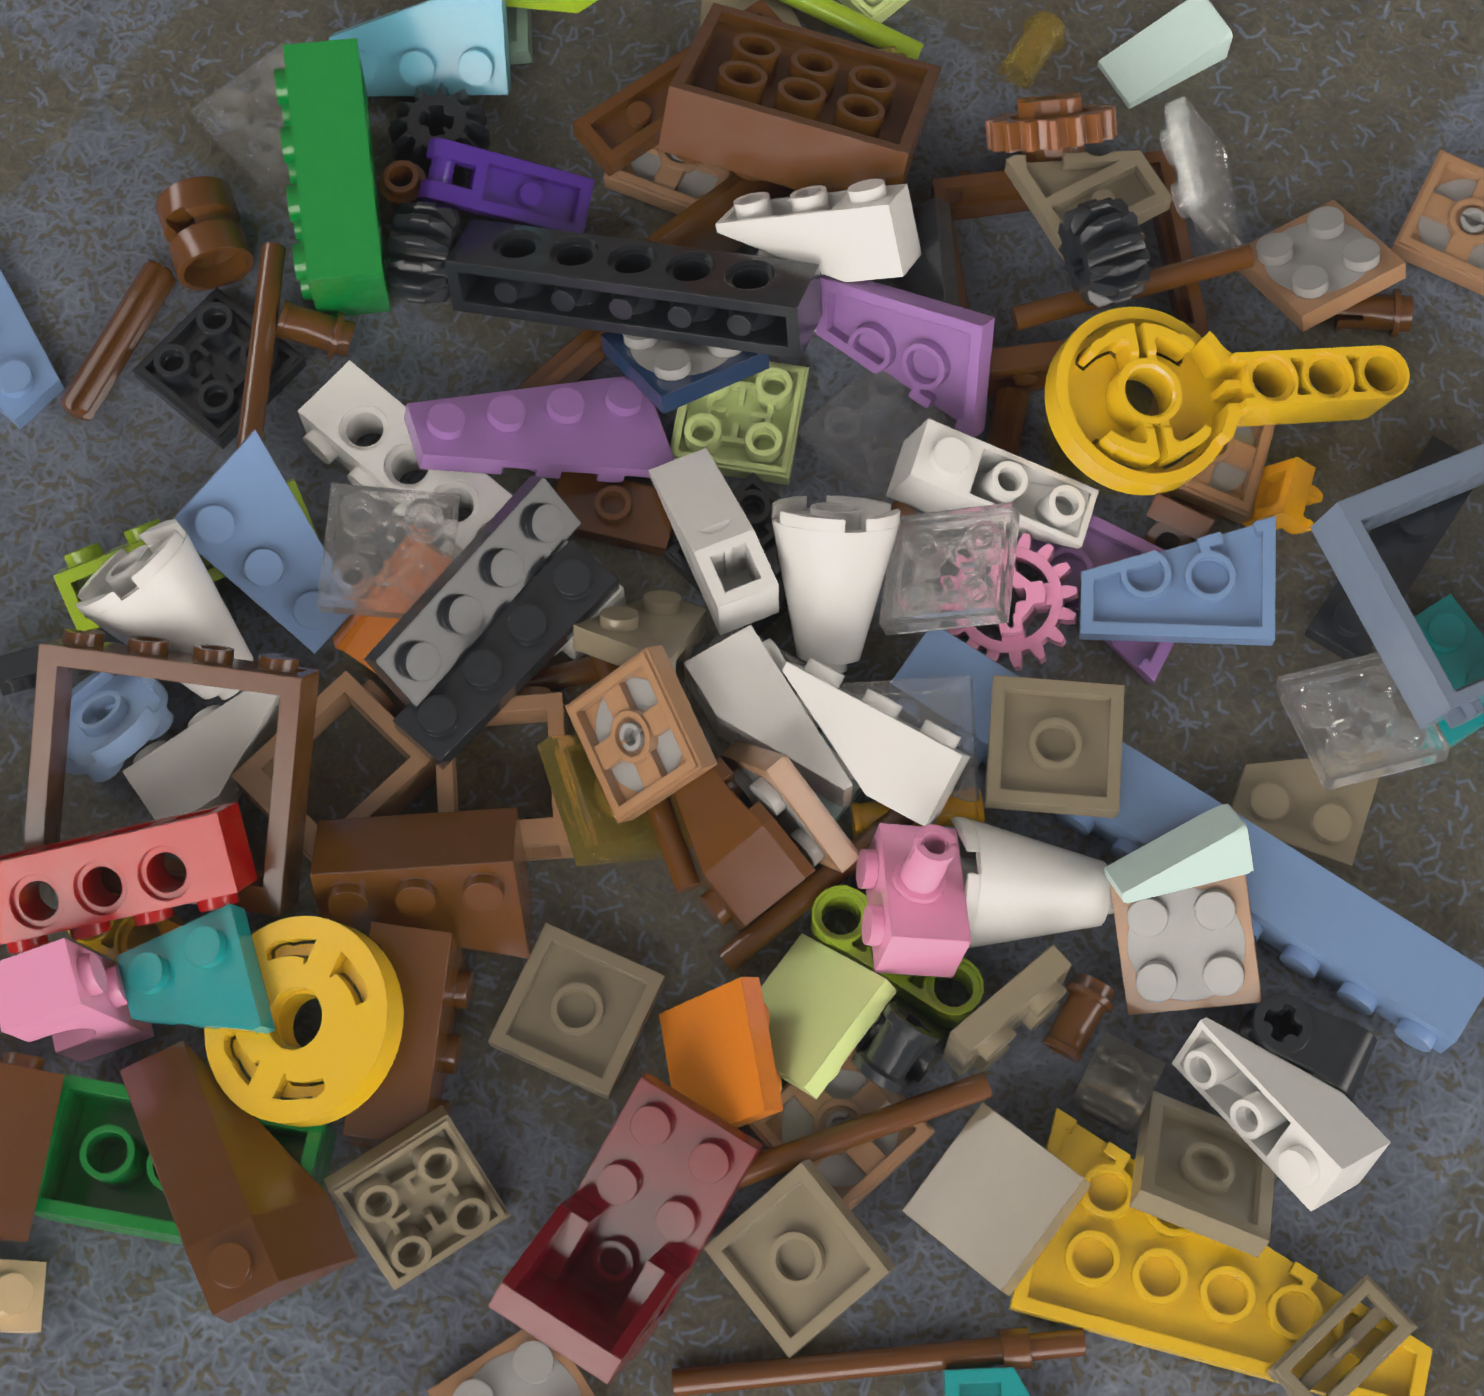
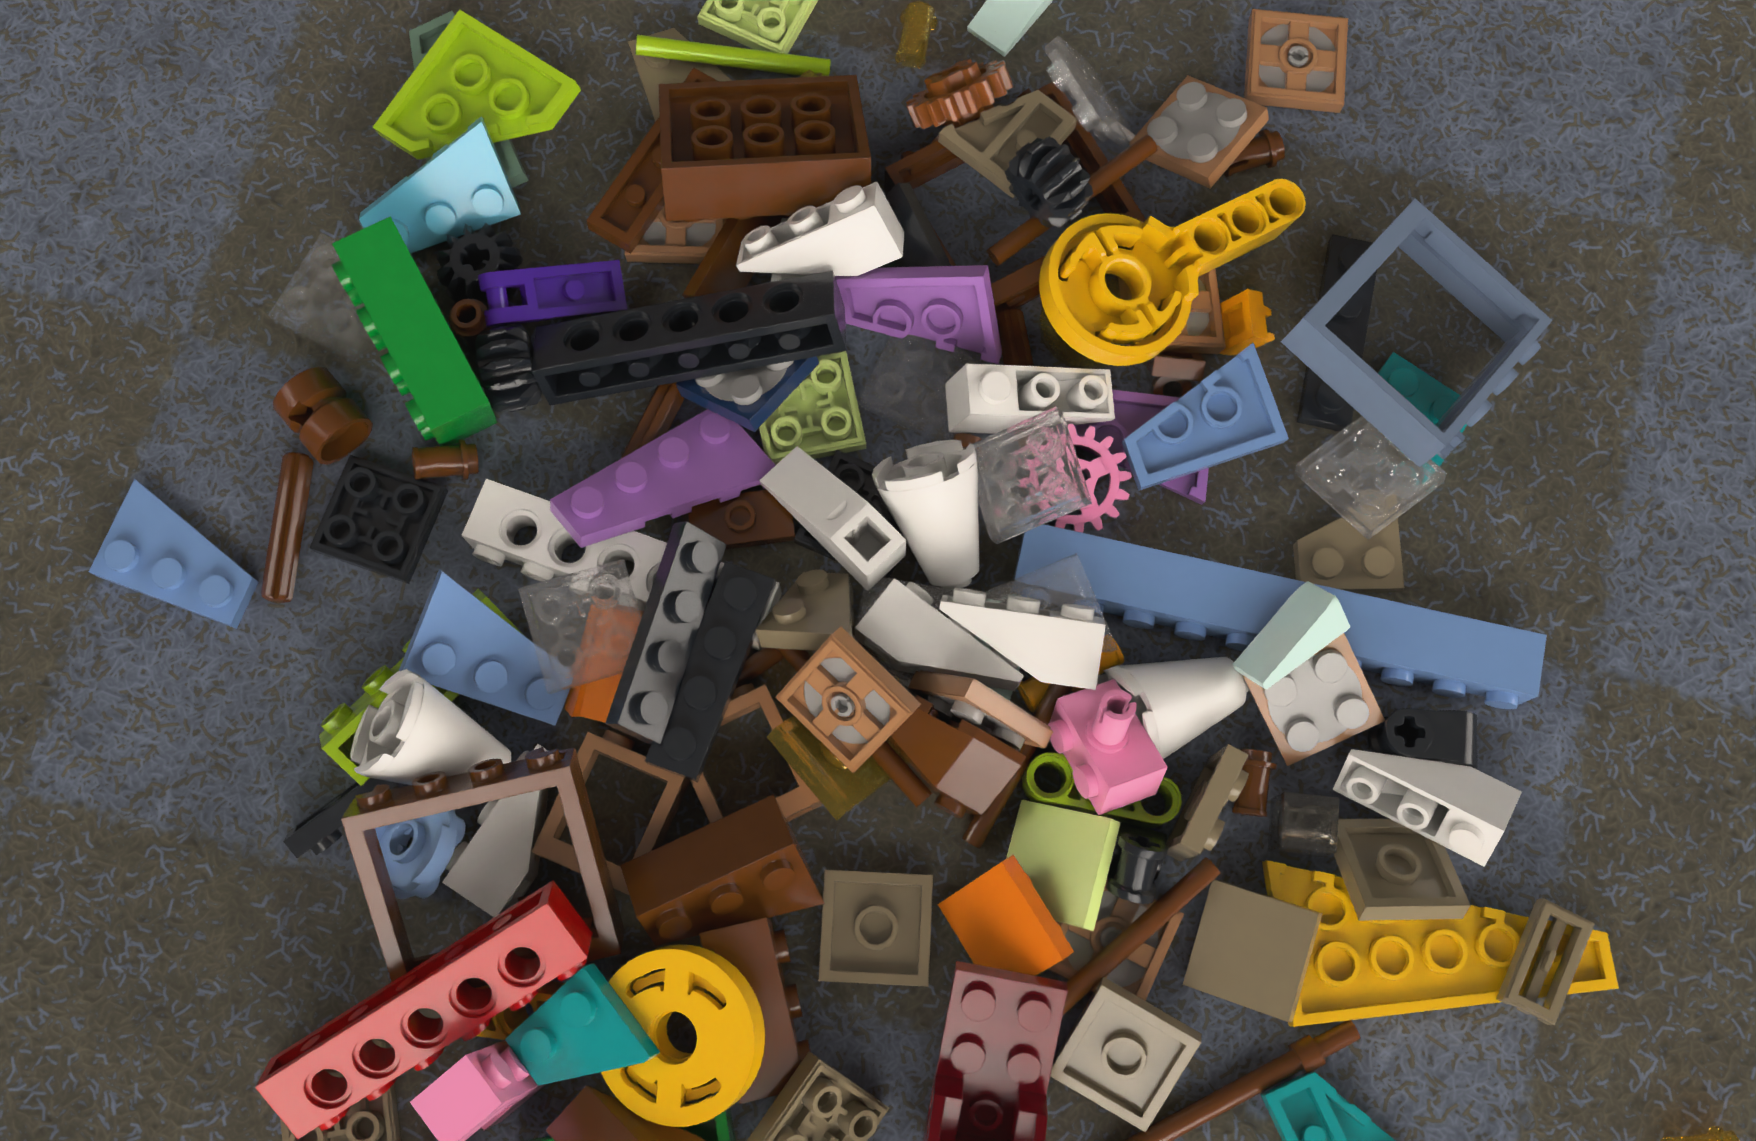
camera: 25 degrees left, 5 degrees up
(262, 341) = (409, 493): reddish brown bar -> none
(1054, 746) = (1161, 585): dark tan plate -> none

